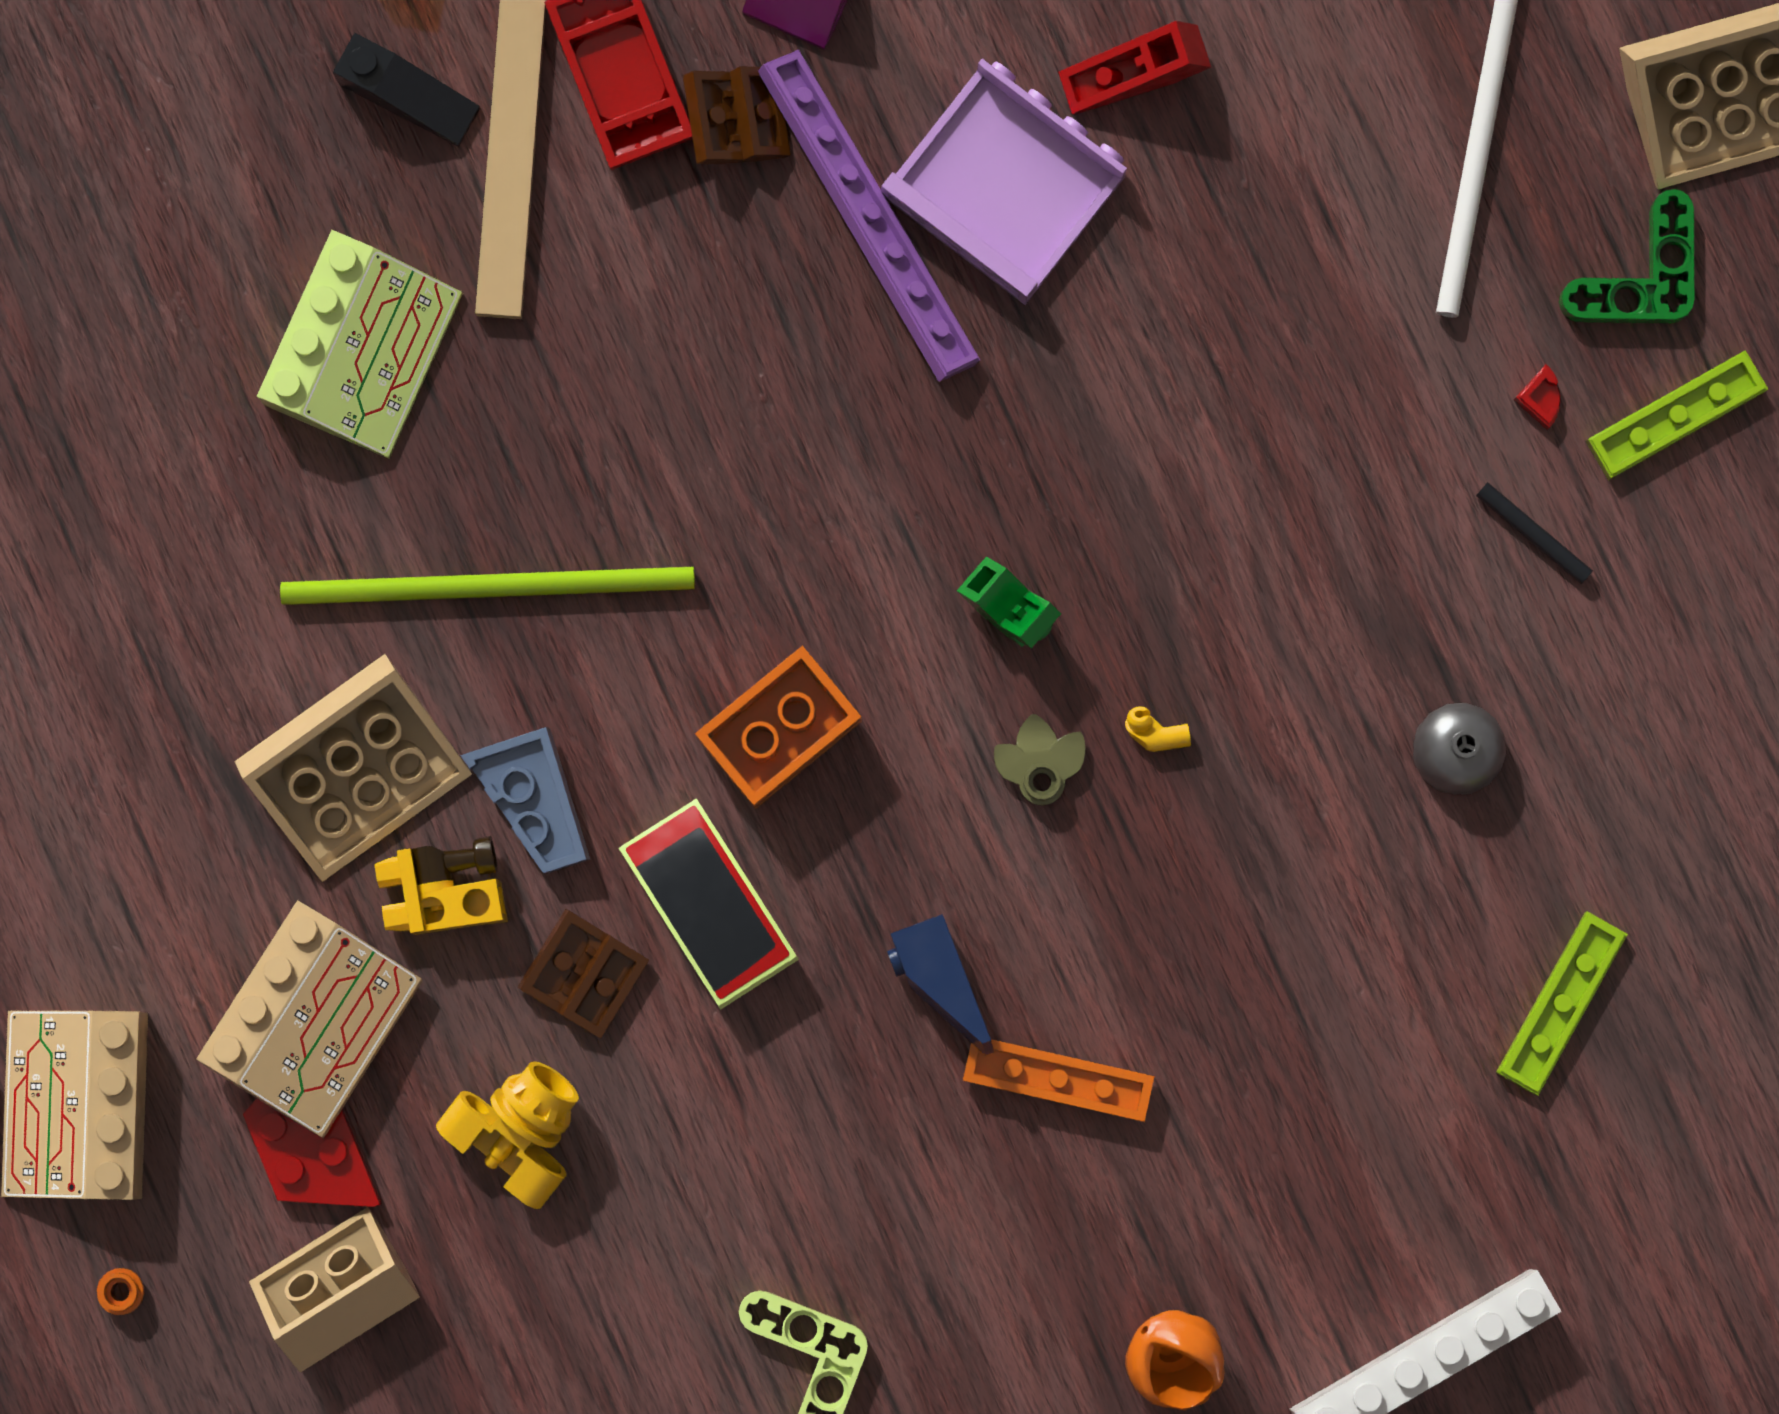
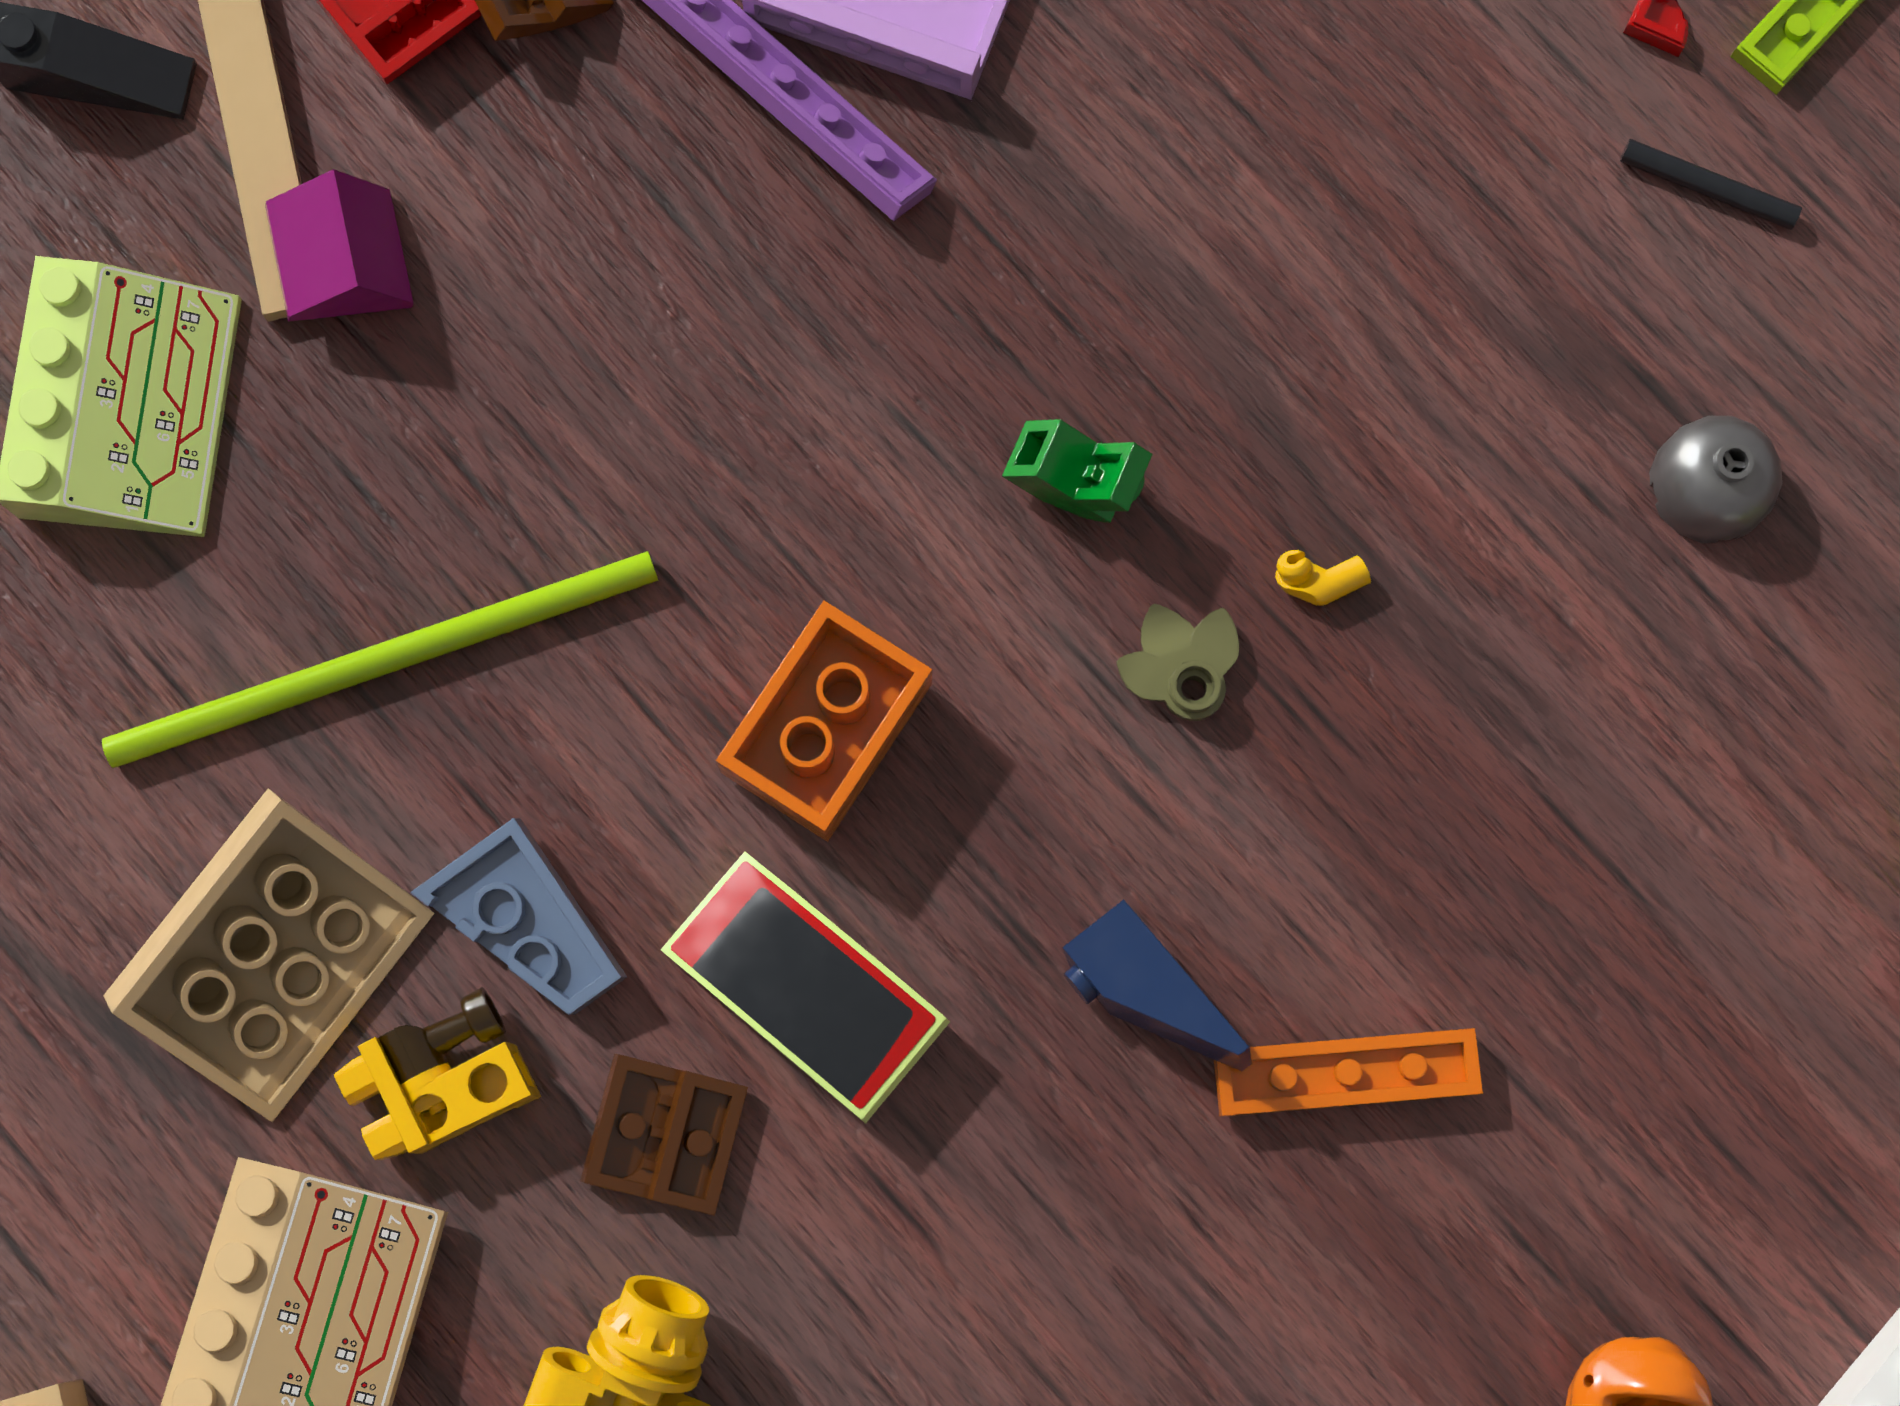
camera: 20 degrees left, 5 degrees down
(541, 283) = (338, 248): none -> magenta slope

